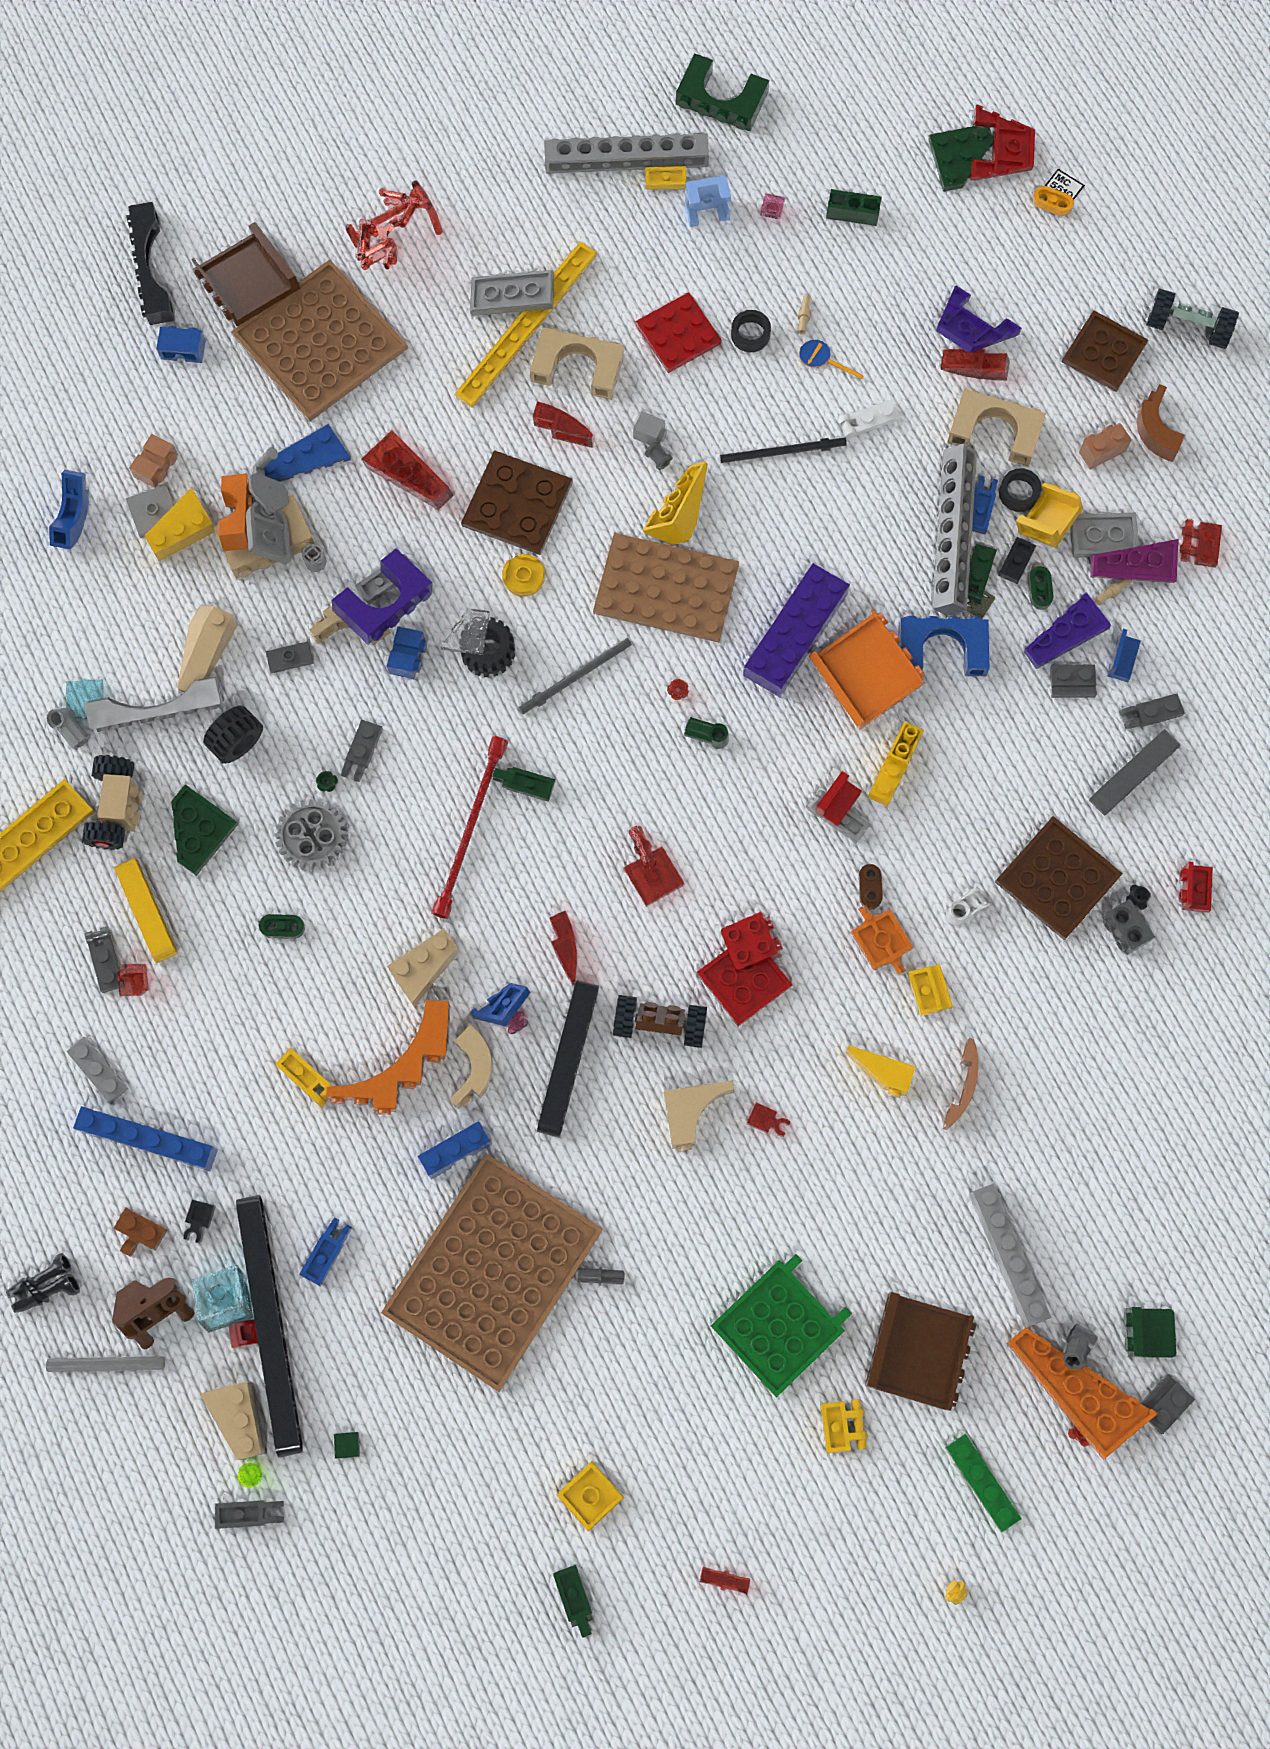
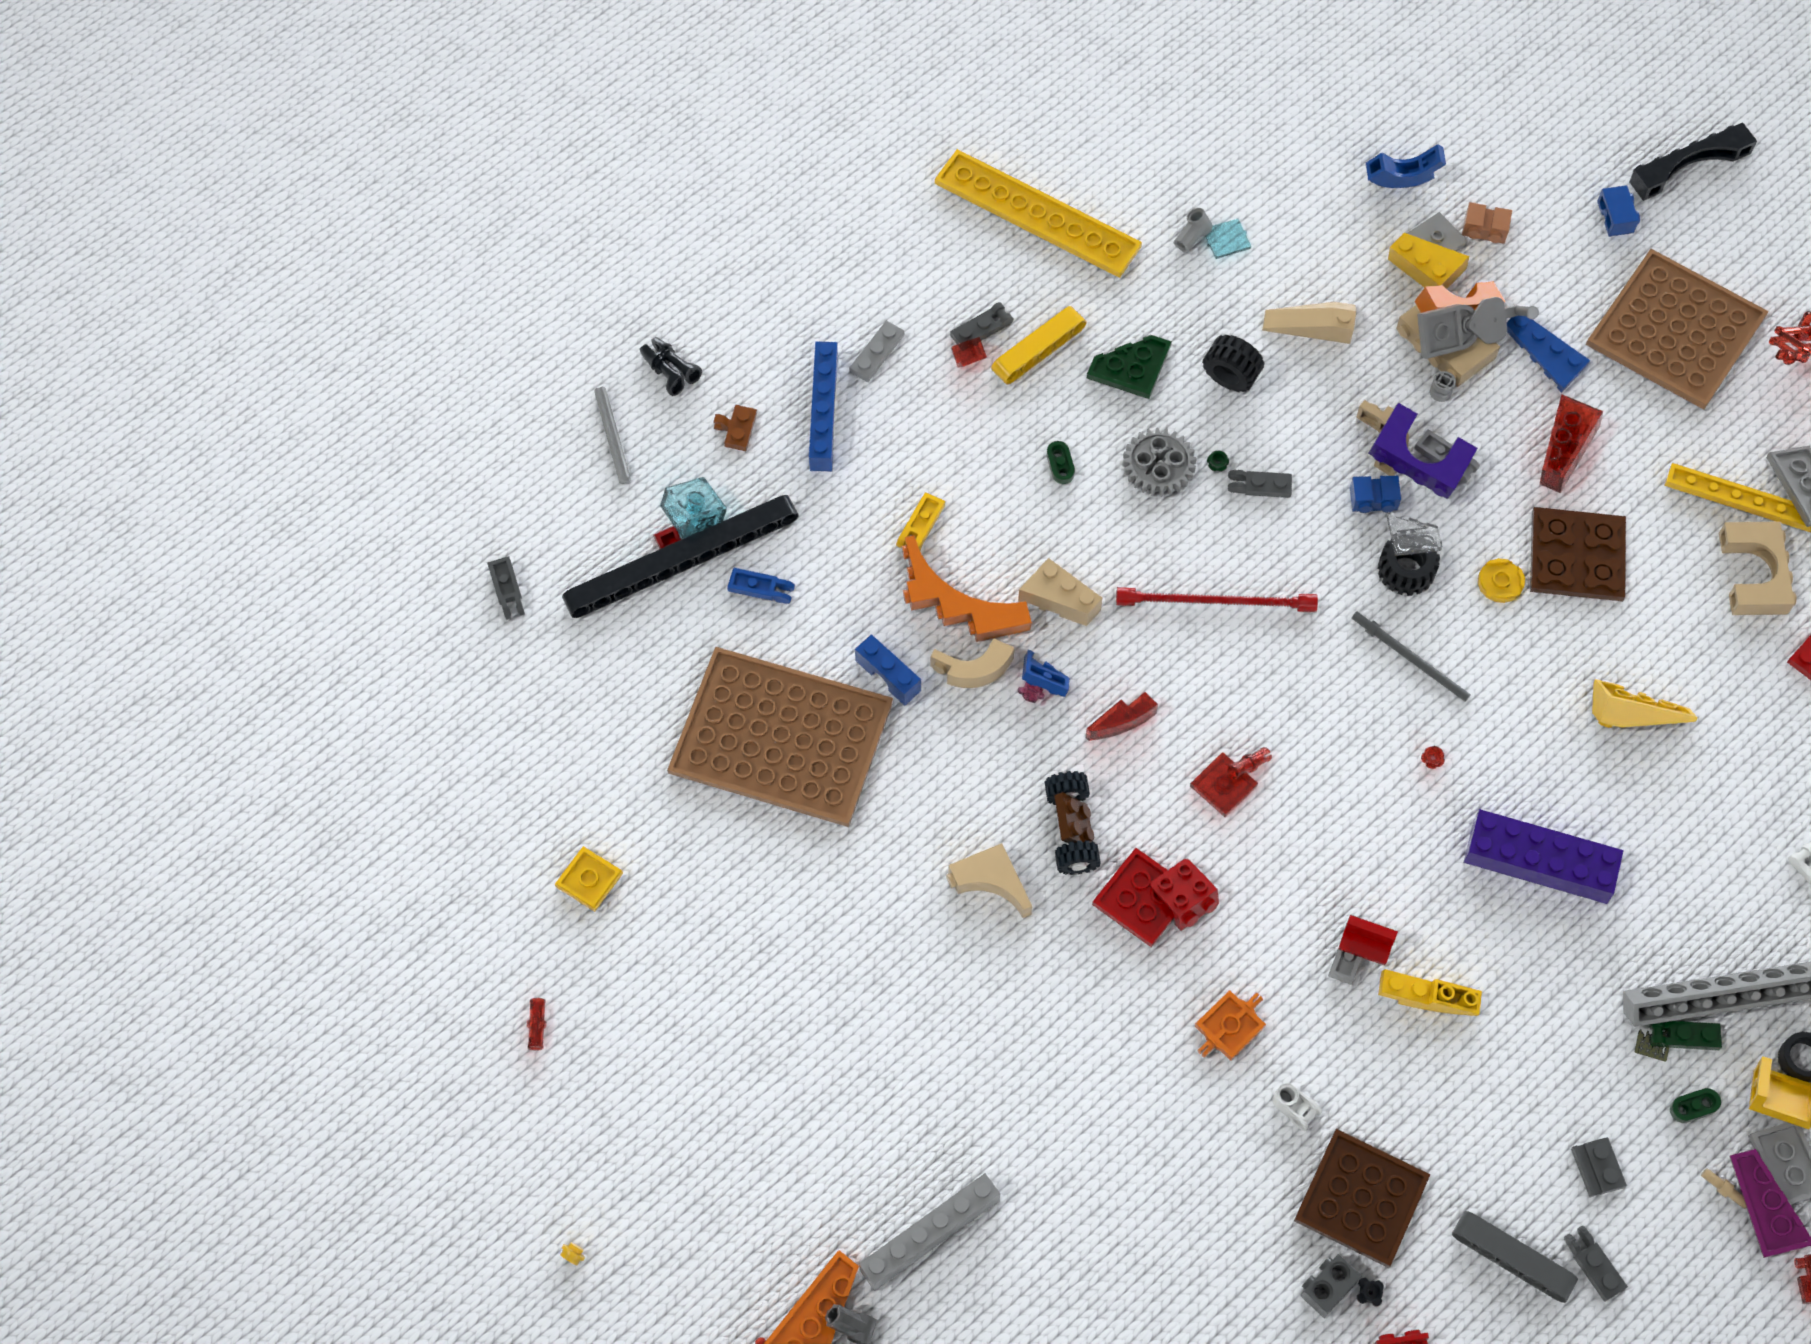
camera: 75 degrees right, 10 degrees down
(107, 711) = (1263, 325): light grey arch -> none
(117, 803) = (1132, 288): brick -> none
(138, 1302) = (669, 445): reddish brown piece -> none
(199, 1216) = (764, 471): black plate -> none
(237, 1418) = (588, 553): tan wedge -> none
(247, 277) = (1714, 244): reddish brown panel -> none
(249, 1475) = (541, 579): clear neon green plate -> none
(289, 657) = (1332, 395): dark grey plate -> none
(346, 1445) = (587, 653): dark green tile -> none
(525, 782) = (1279, 638): dark green hinge -> none
(562, 425) = (1679, 569): clear red slope -> none
(567, 1059) = (1009, 749): black beam -> none
(574, 1599) = (489, 888): dark green hinge -> none
(600, 1276) = (802, 835): dark grey axle -> none
(649, 429) = (1711, 656): light grey brick -> none
(658, 455) = (1685, 673): dark grey bush -> none
(666, 587) = (1542, 720): medium nougat plate -> none
(705, 731) = (1395, 796): dark green piece -> none
(764, 1119) = (1004, 954): clear red plate -> none
(779, 1327) = (796, 1016): green plate -> none
(824, 444) = (1770, 836): black bar -> none
(836, 1428) = (709, 1096): yellow plate -> none
(868, 670) = (1523, 937): orange panel -> none
(870, 885) = (1287, 1003): reddish brown plate -> none
(886, 1072) = (1087, 1063): yellow slope -> none
(920, 1352) = (806, 1162): reddish brown panel -> none
(929, 990) = (1191, 1087): yellow plate -> none
(969, 1058) = (1064, 1142): nougat slope -> none
(970, 633) = (1588, 981): blue arch -> none
(983, 505) = (1768, 1020): blue hinge -> none
(983, 1483) = (688, 1259): green plate -> none
(1017, 560) = (1718, 1072): black plate -> none
(1069, 631) = (1666, 1157): dark purple wing -> none
(1123, 657) = (1648, 1216): blue panel -> none

